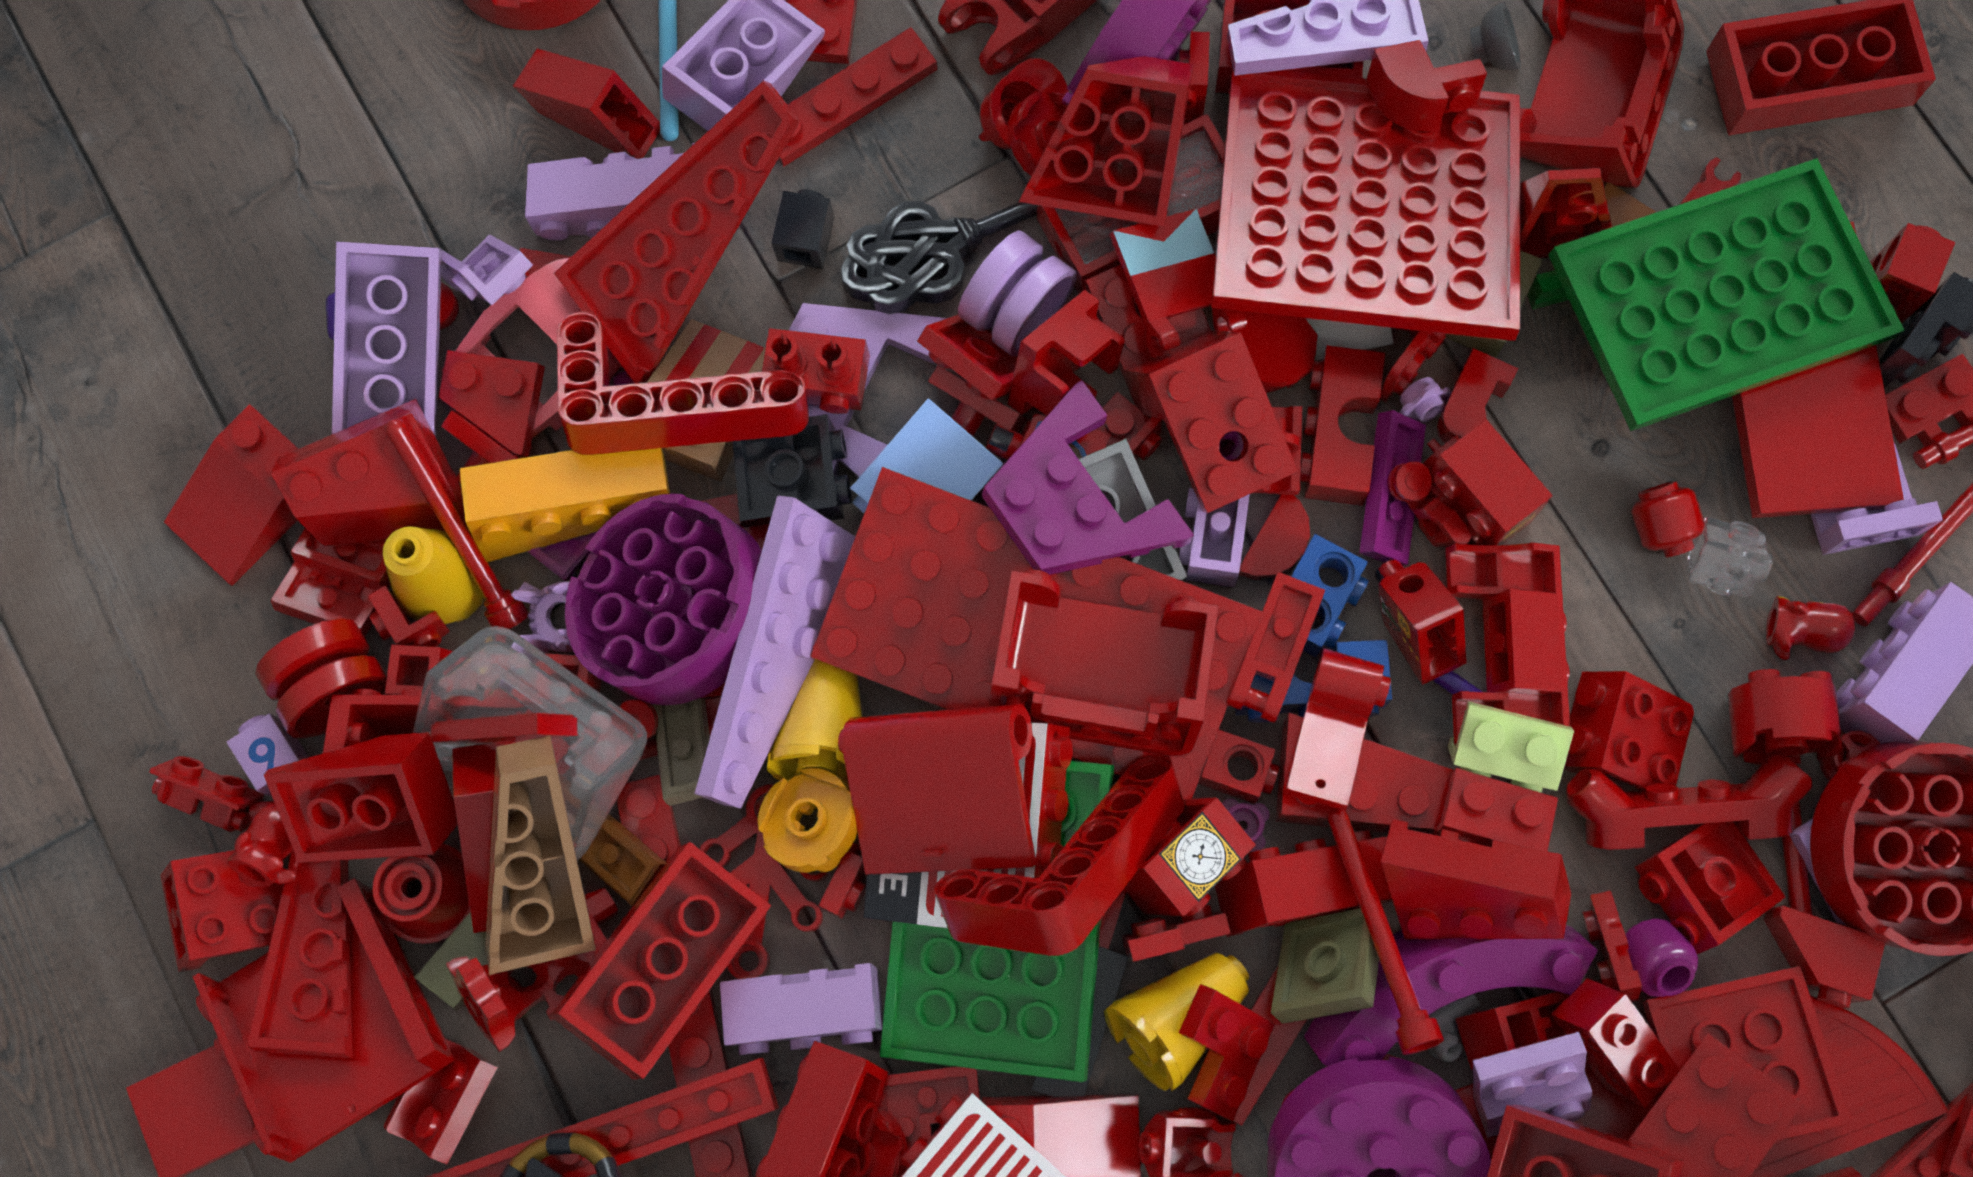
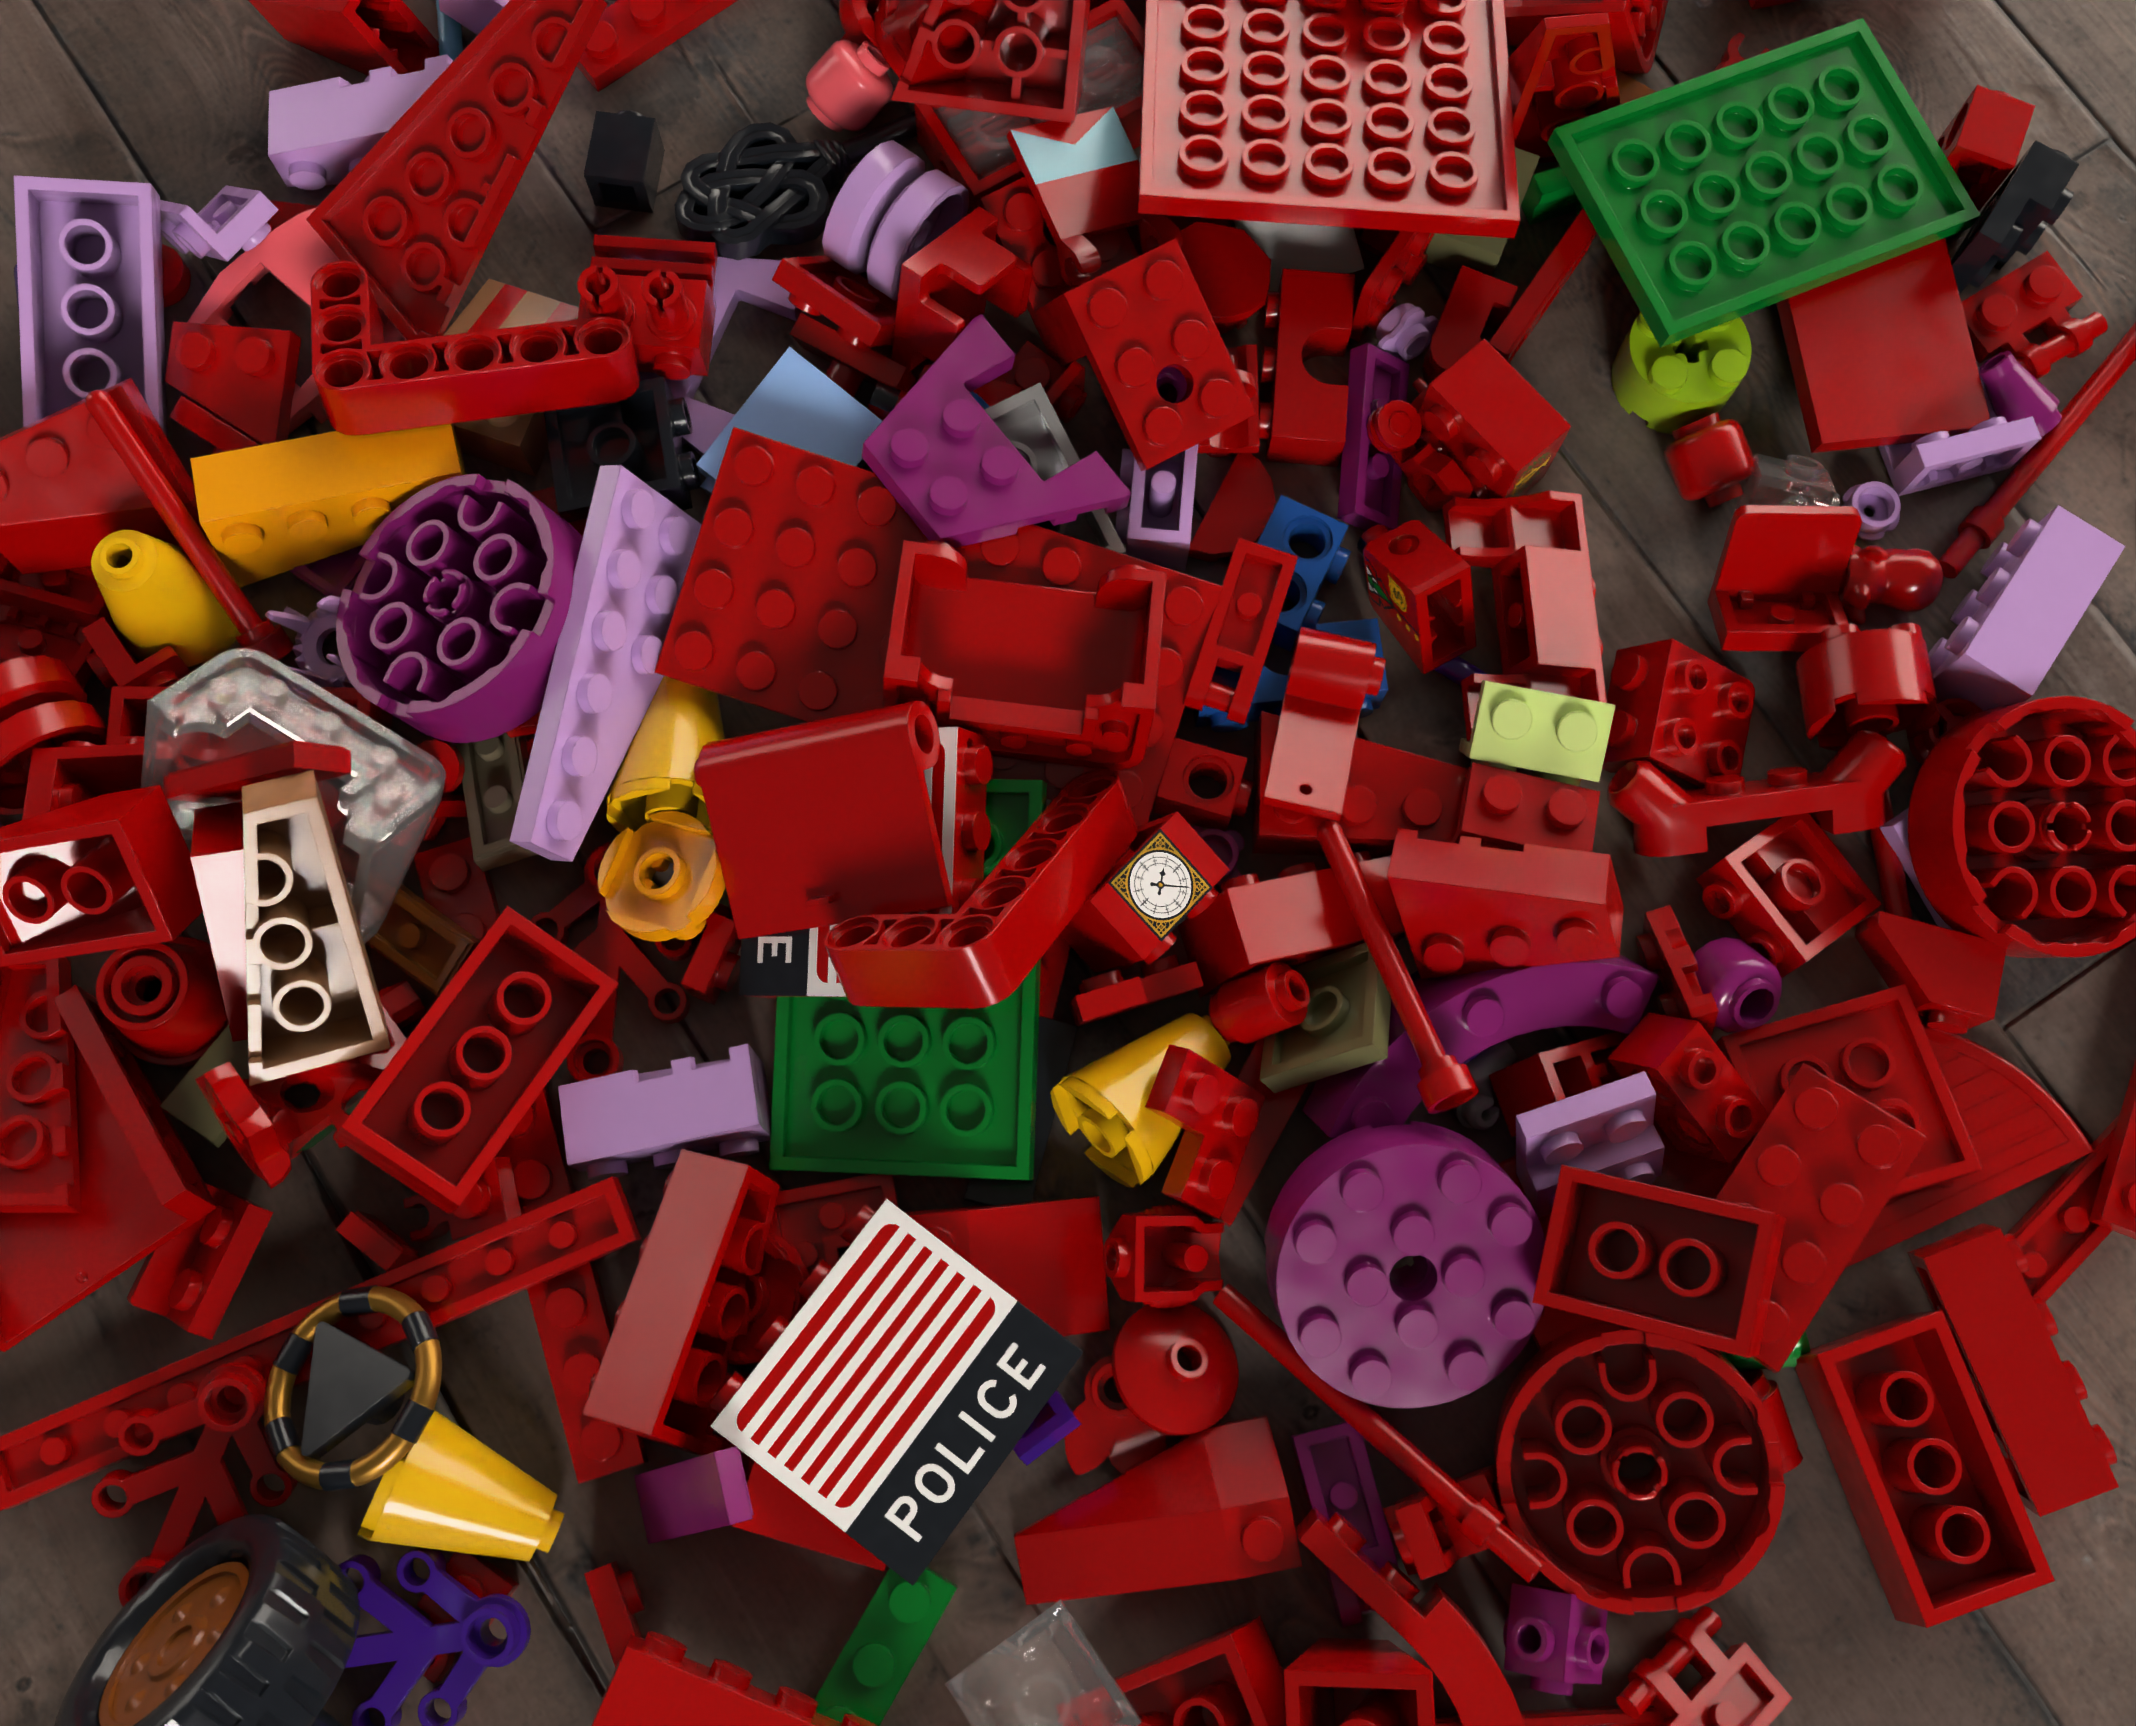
camera: 15 degrees left, 0 degrees up
(575, 1094) = (377, 1240): none -> red tile
(664, 1076) = (486, 1205): none -> red plate
(824, 306) = (643, 255): none -> red tile
(984, 175) = (848, 85): none -> coral head
(1274, 951) = (1260, 1003): none -> red brick
(1535, 373) = (1544, 287): none -> red tile
(1638, 459) = (1683, 378): none -> lime brick
(1720, 624) = (1782, 576): none -> red bracket
(1807, 557) = (1881, 501): none -> lavender plate
(1929, 478) = (2018, 393): none -> magenta cone

